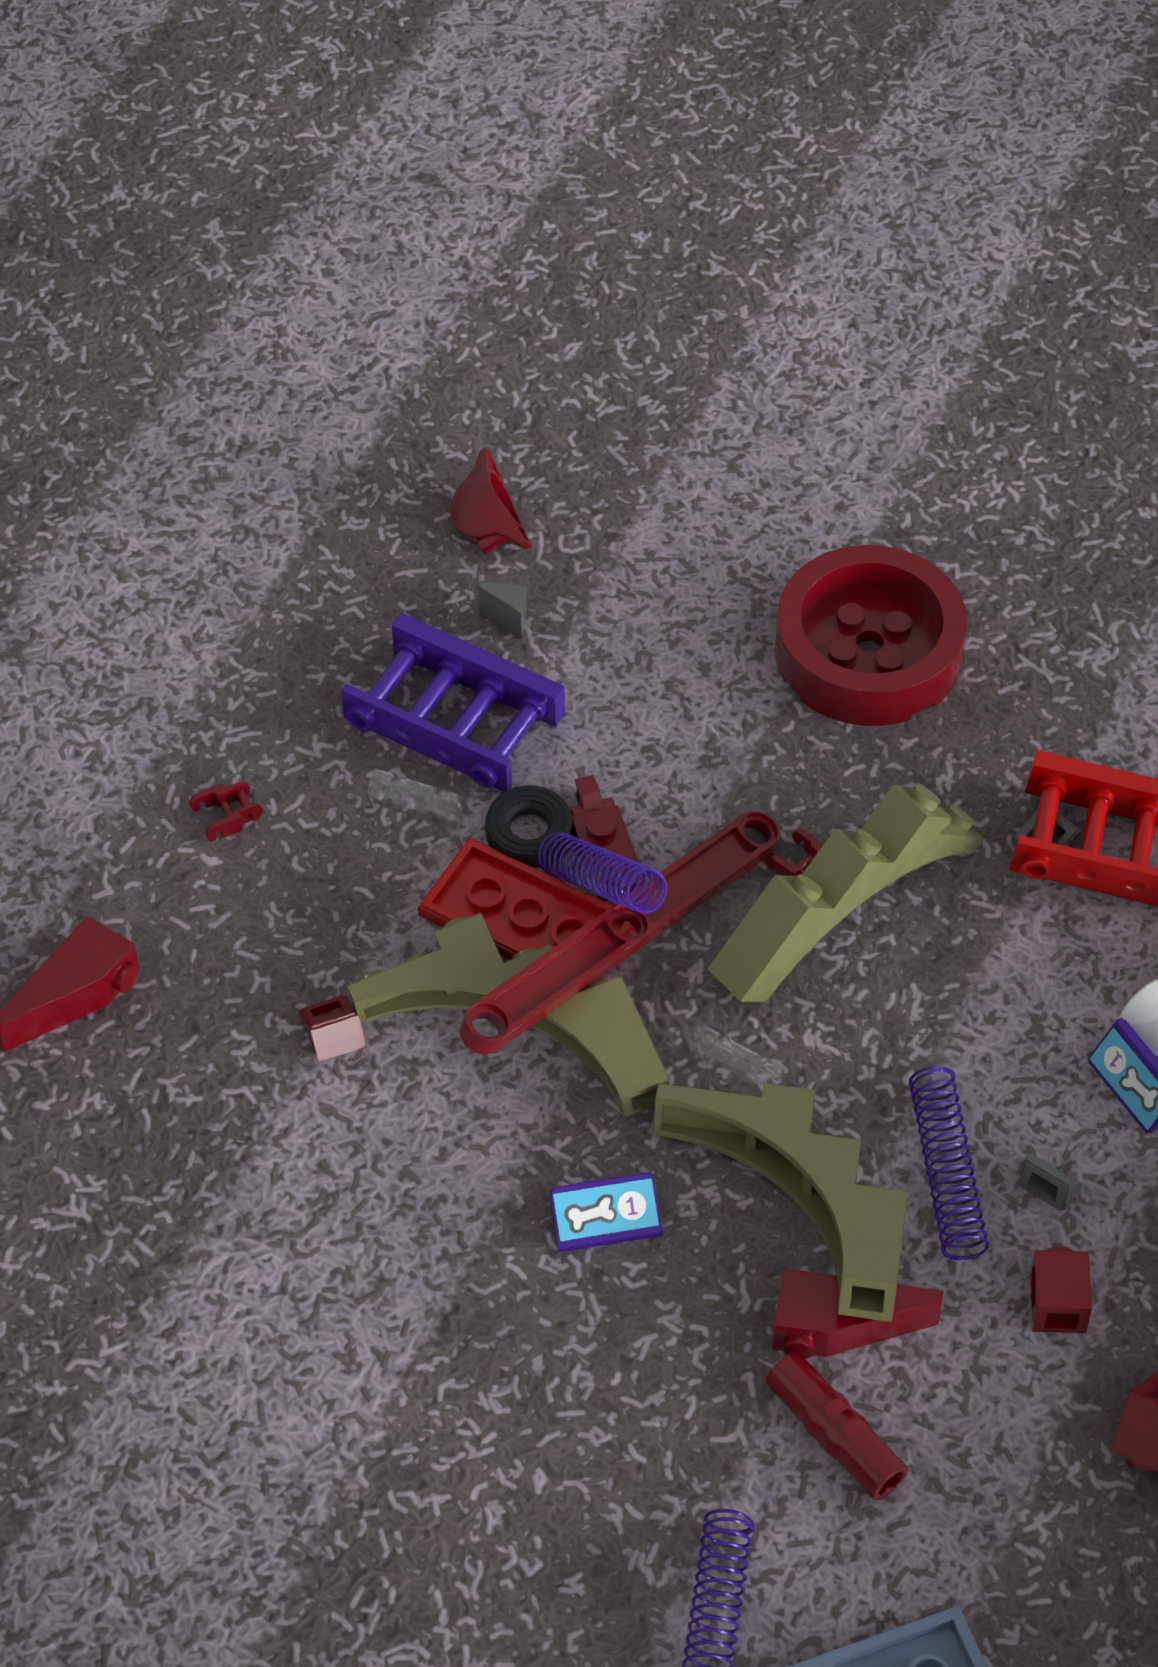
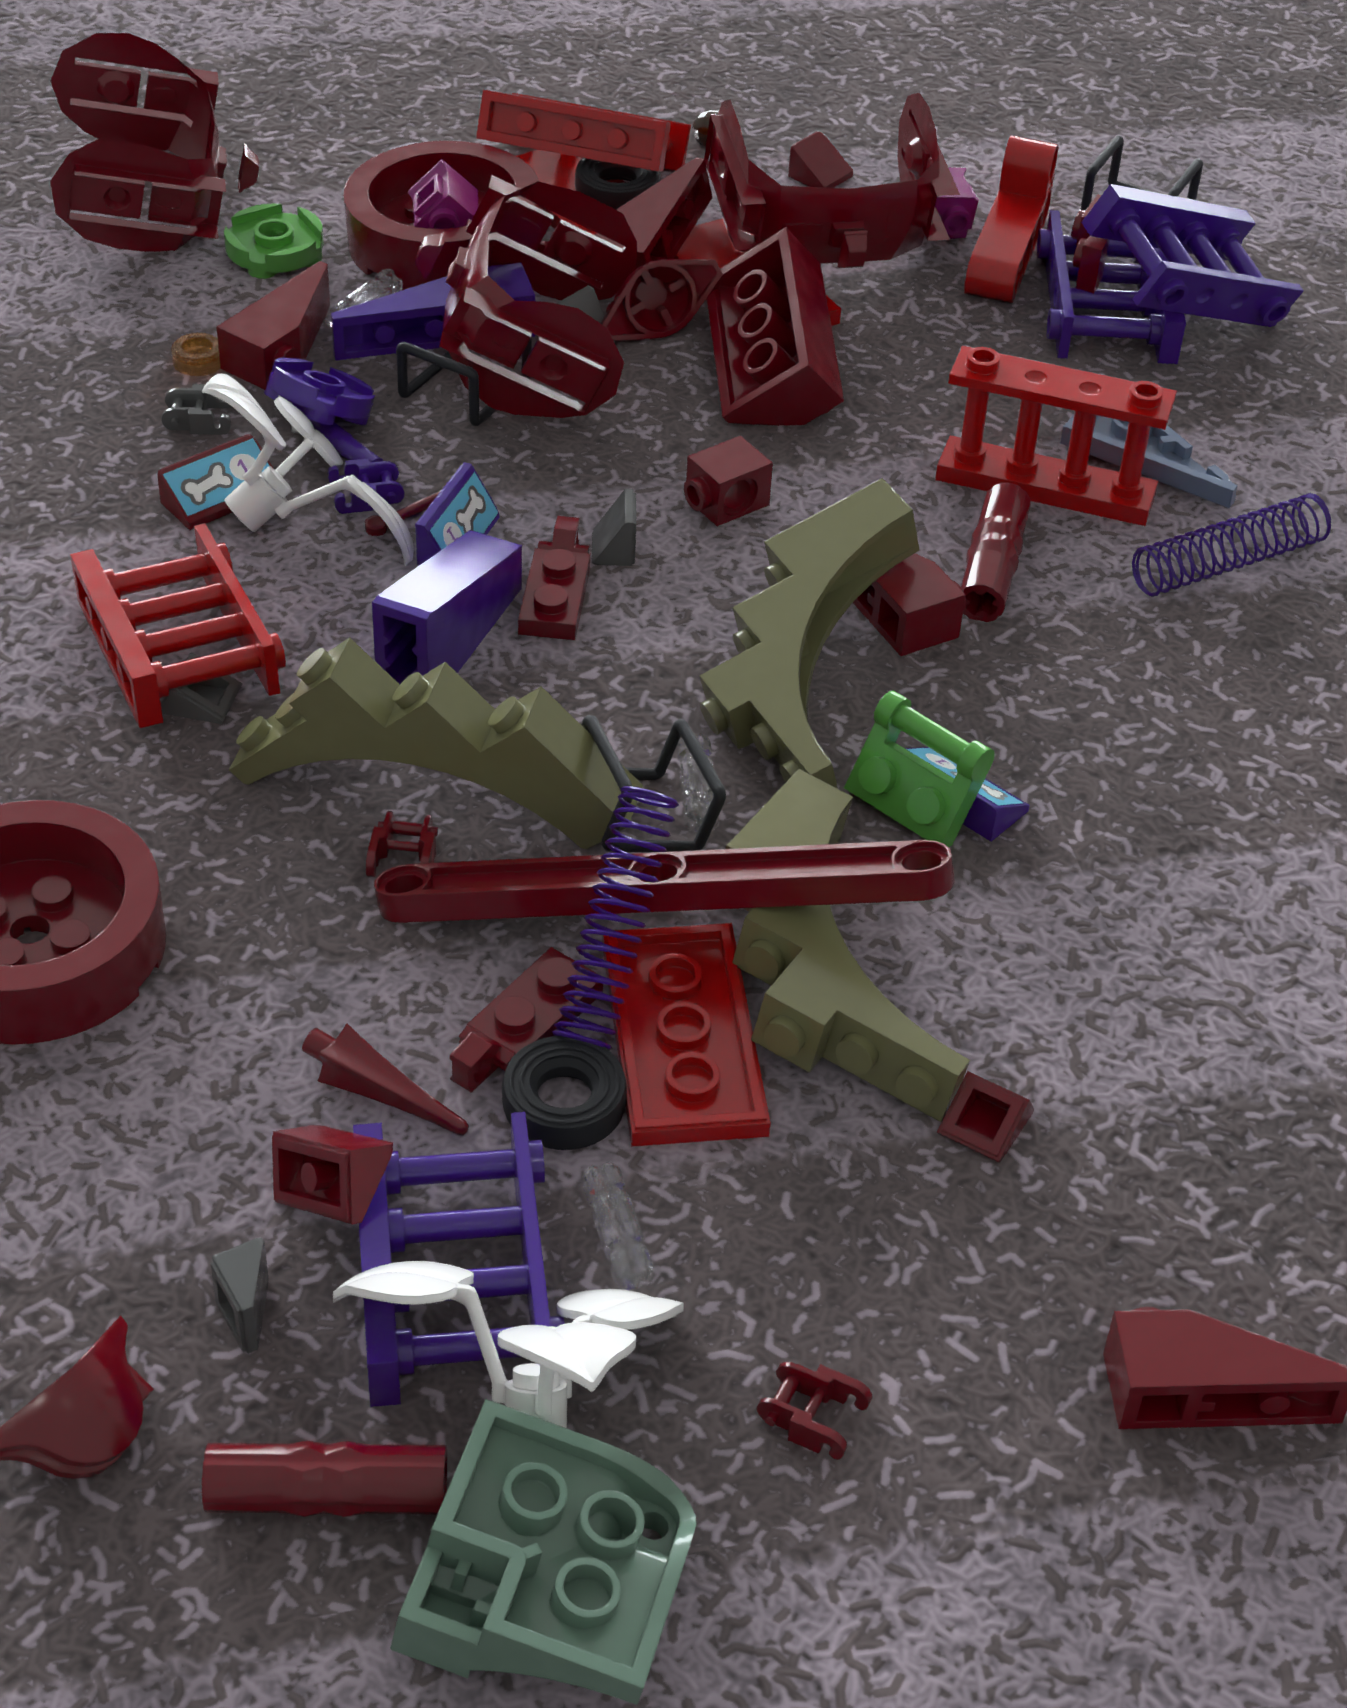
camera: 130 degrees left, 10 degrees down
(230, 633) = (547, 1559): none -> sand green slope
(288, 627) = (560, 1354): none -> white plant
(366, 587) = (324, 1478): none -> dark red axle
(547, 661) = (328, 1170): none -> dark red slope
(628, 742) = (358, 1068): none -> dark red piece
(640, 1157) = (911, 787): none -> bright green plate
(685, 1019) = (679, 729): none -> black piece
(915, 1535) = (1047, 479): none -> red fence
(940, 1160) = (725, 535): dark purple piece -> none
(1013, 991) = (445, 605): none -> dark purple slope
(1023, 1109) = (556, 584): none -> dark red hinge

